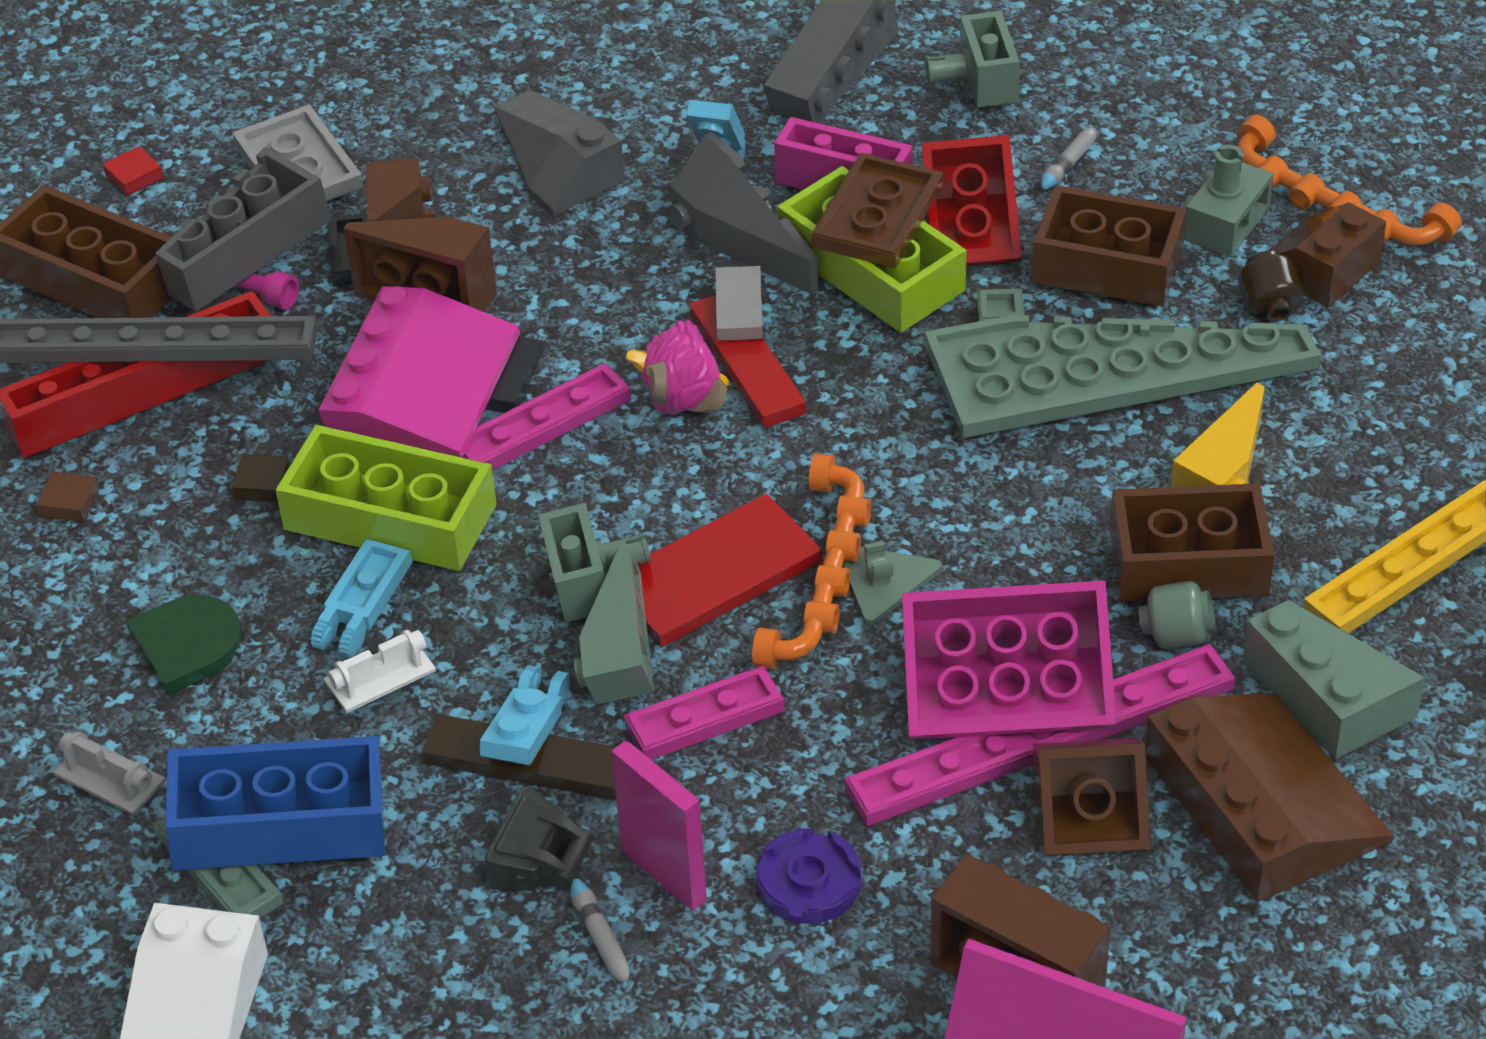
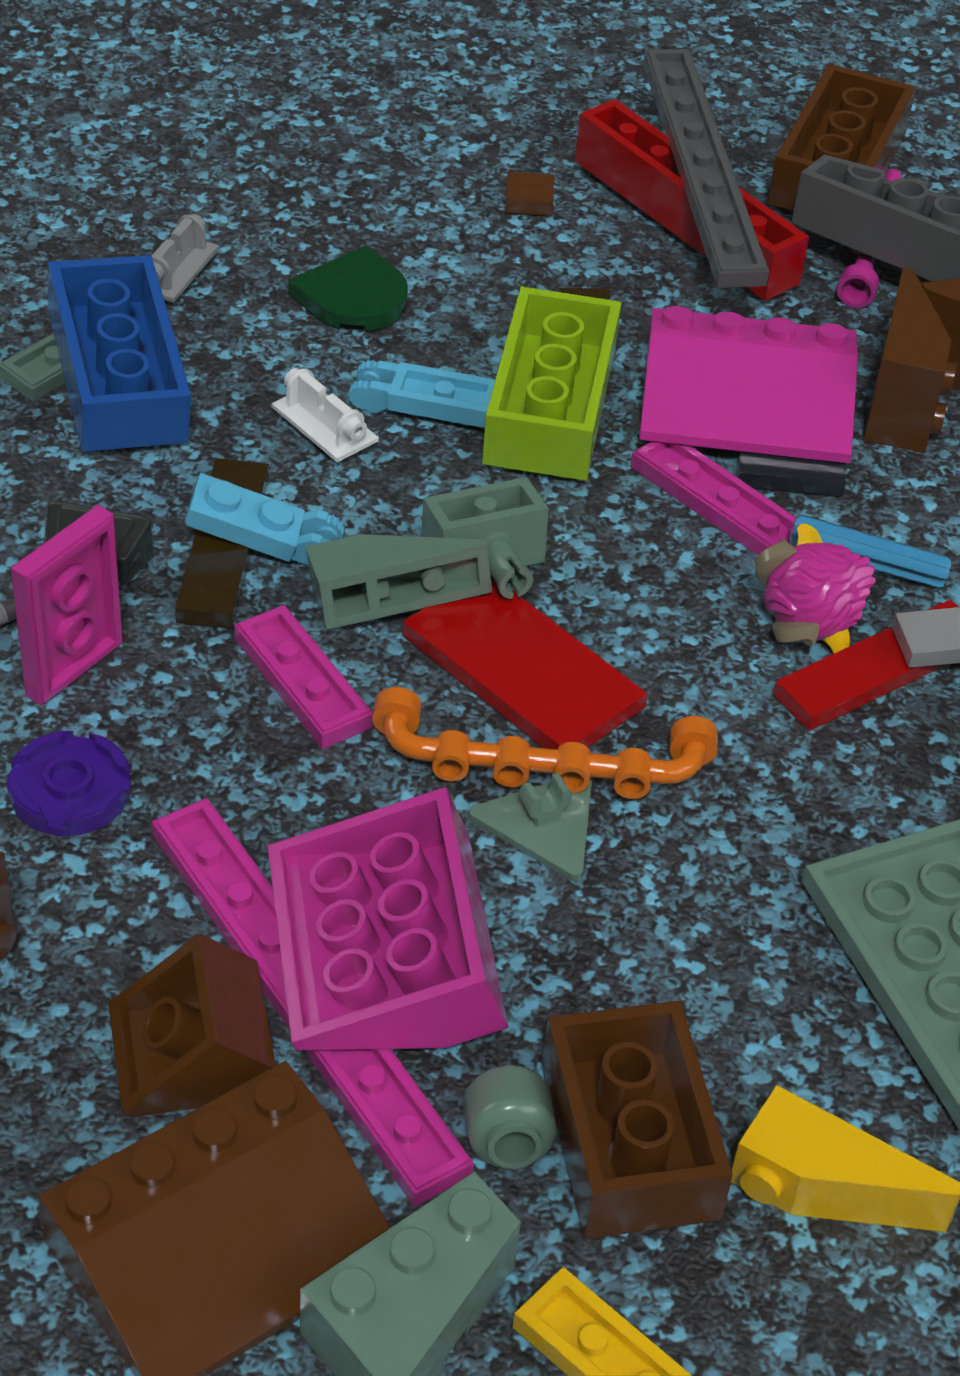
camera: 75 degrees right, 0 degrees up
(629, 337) = (883, 553): none -> dark azure axle

